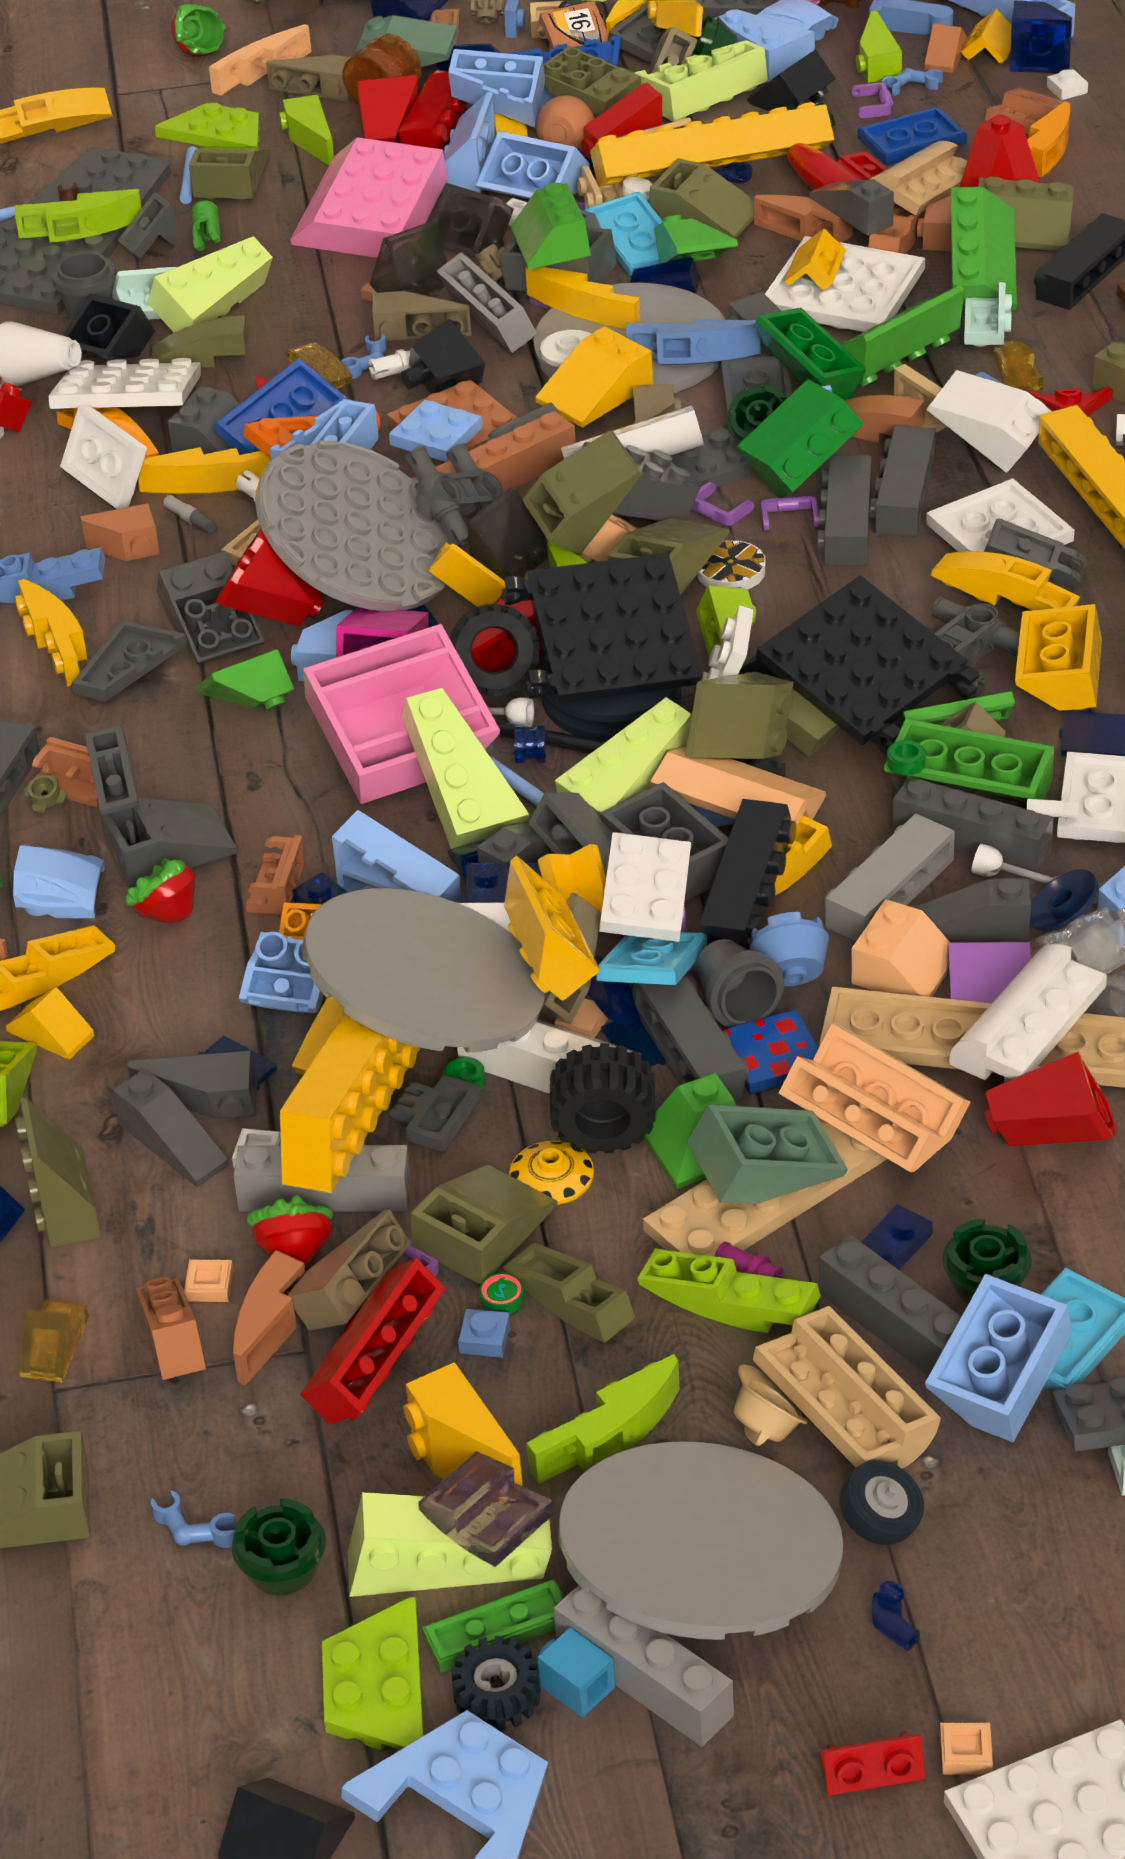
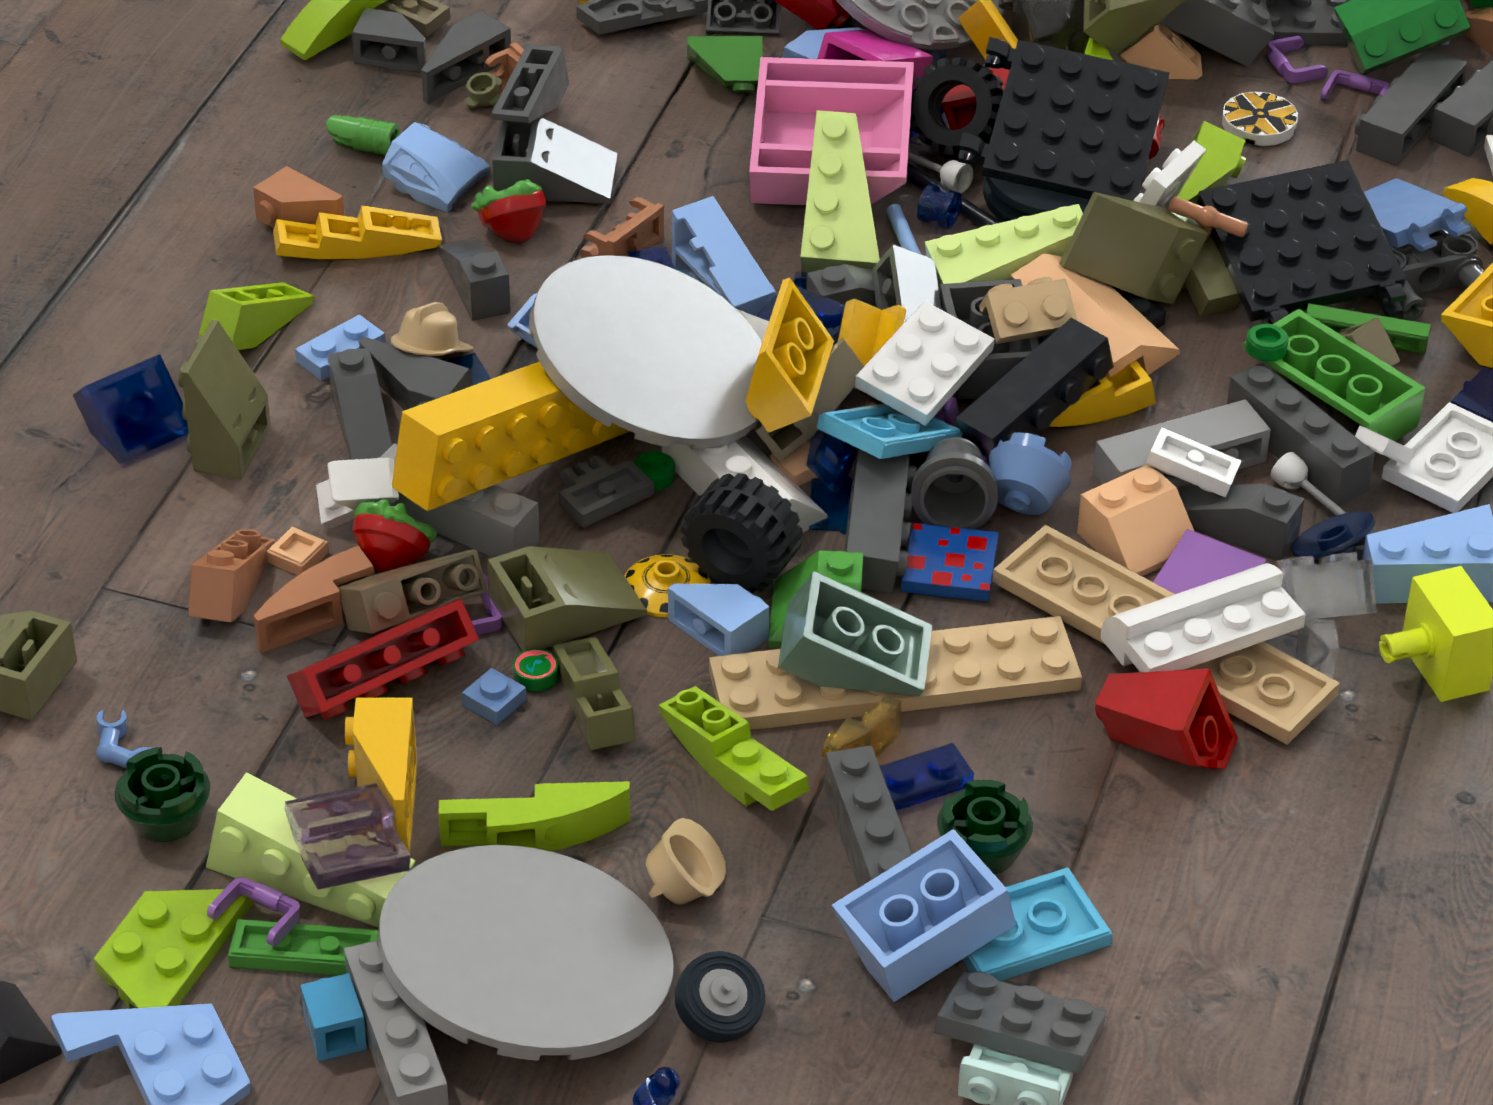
camera: 25 degrees right, 0 degrees up
(51, 1339) = (128, 543): clear yellow slope -> none
(52, 1024) = (336, 286): yellow slope -> none
(98, 1075) = (343, 337): none -> light blue plate
(175, 963) = (477, 277): none -> dark grey slope
(185, 1033) = (429, 332): none -> tan piece
(232, 1200) = (352, 484): none -> white slope
(438, 1596) = (262, 895): none -> medium lavender piece
(501, 1704) = (259, 1015): black bush -> none
(625, 1180) = (719, 616): none -> light blue slope
(685, 541) = (1202, 83): olive slope -> none
(700, 806) = (1028, 309): none -> tan bracket
(747, 1262) = (768, 734): magenta pin -> none
(785, 667) = (1207, 217): none -> nougat piece
(822, 1231) = (877, 729): none -> clear yellow slope
(848, 1391) = (766, 886): tan brick -> none
(875, 1098) = (997, 638): light nougat slope -> none
(921, 883) = (1193, 462): none -> white plate
(935, 600) = (1413, 213): none -> medium blue tile

